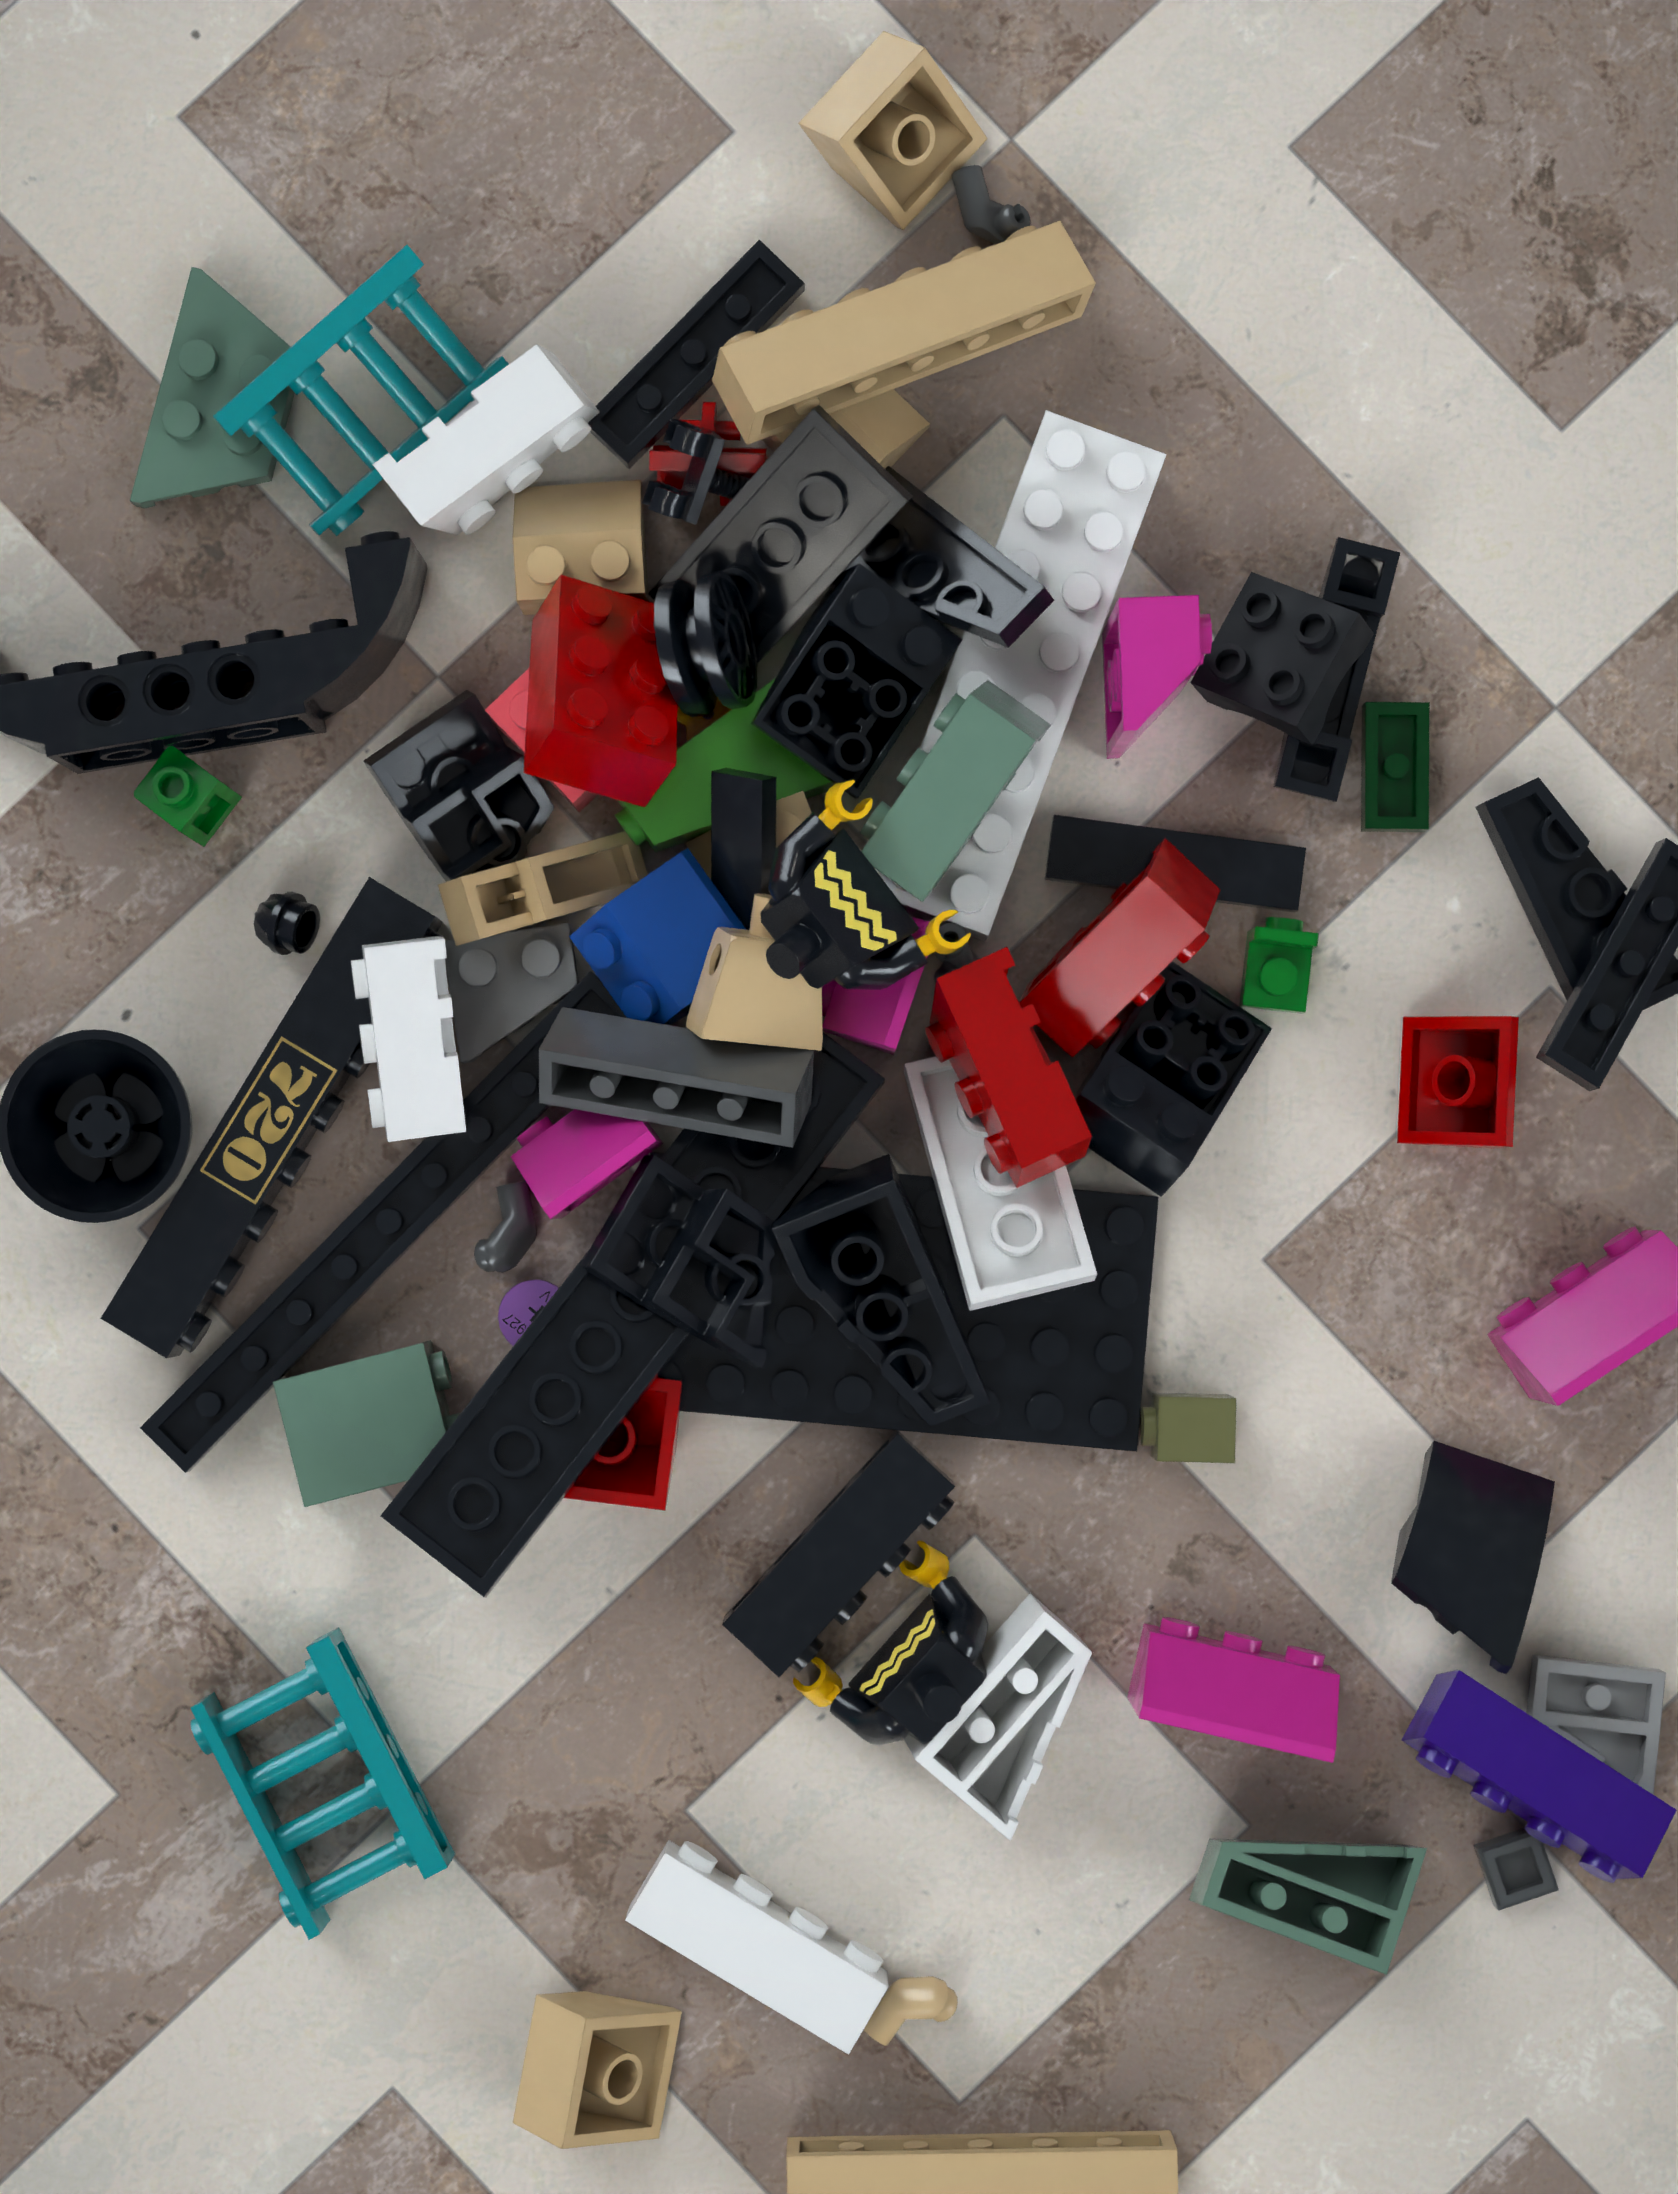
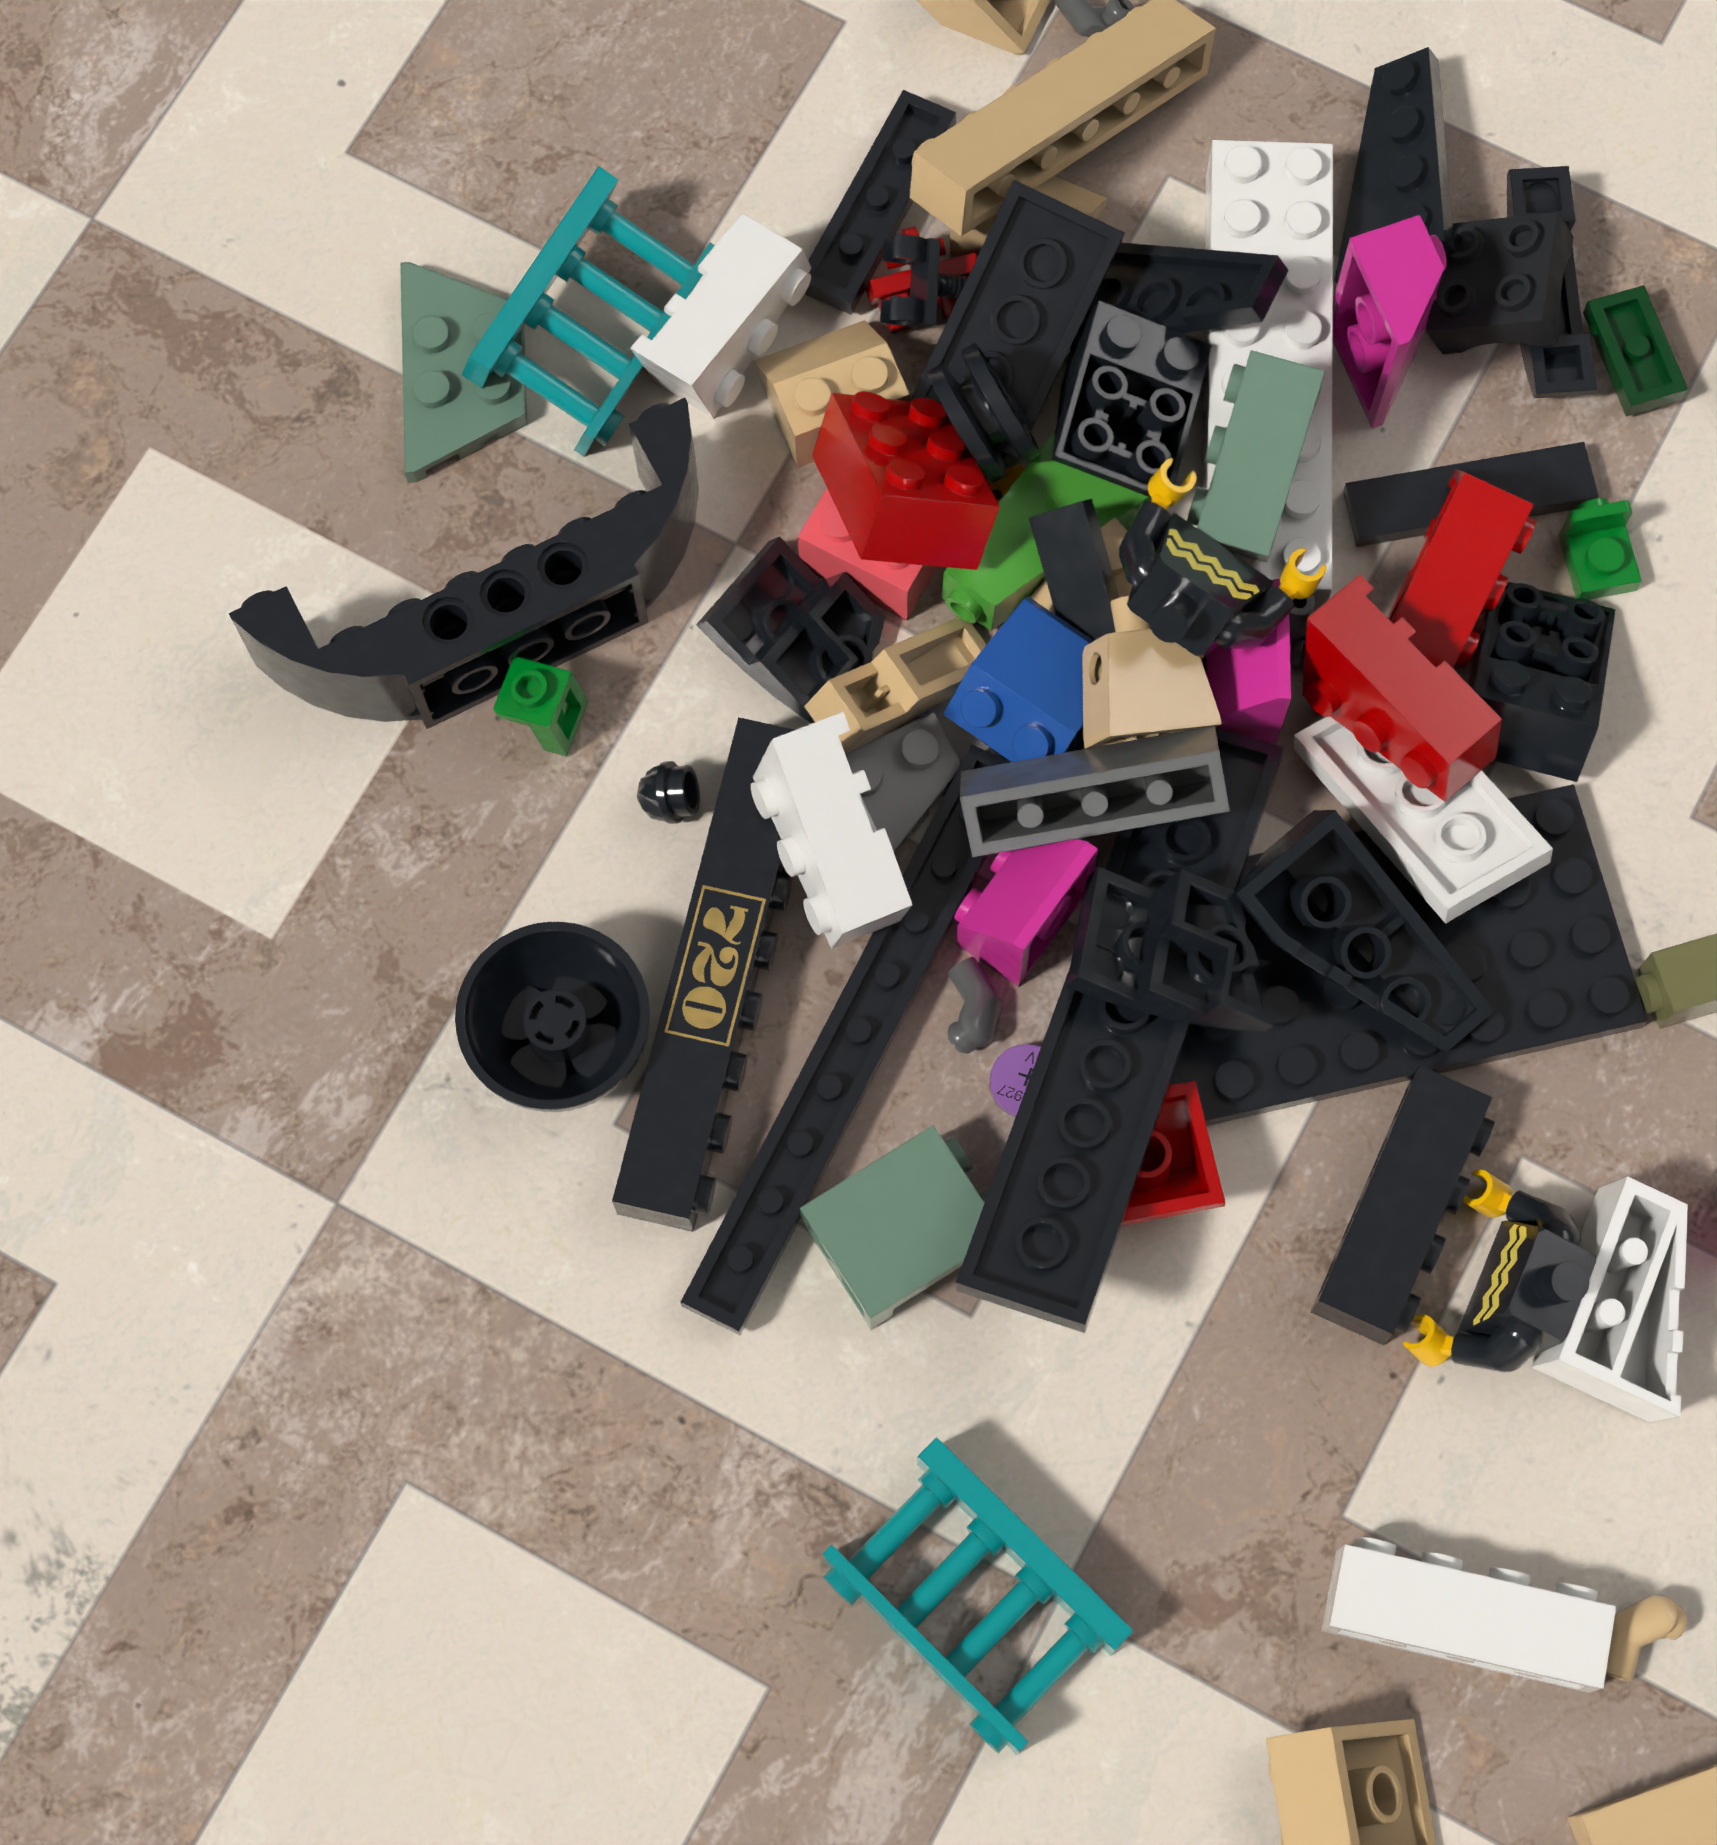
camera: 15 degrees left, 15 degrees down
(1232, 500) = (1402, 153): none -> black wing

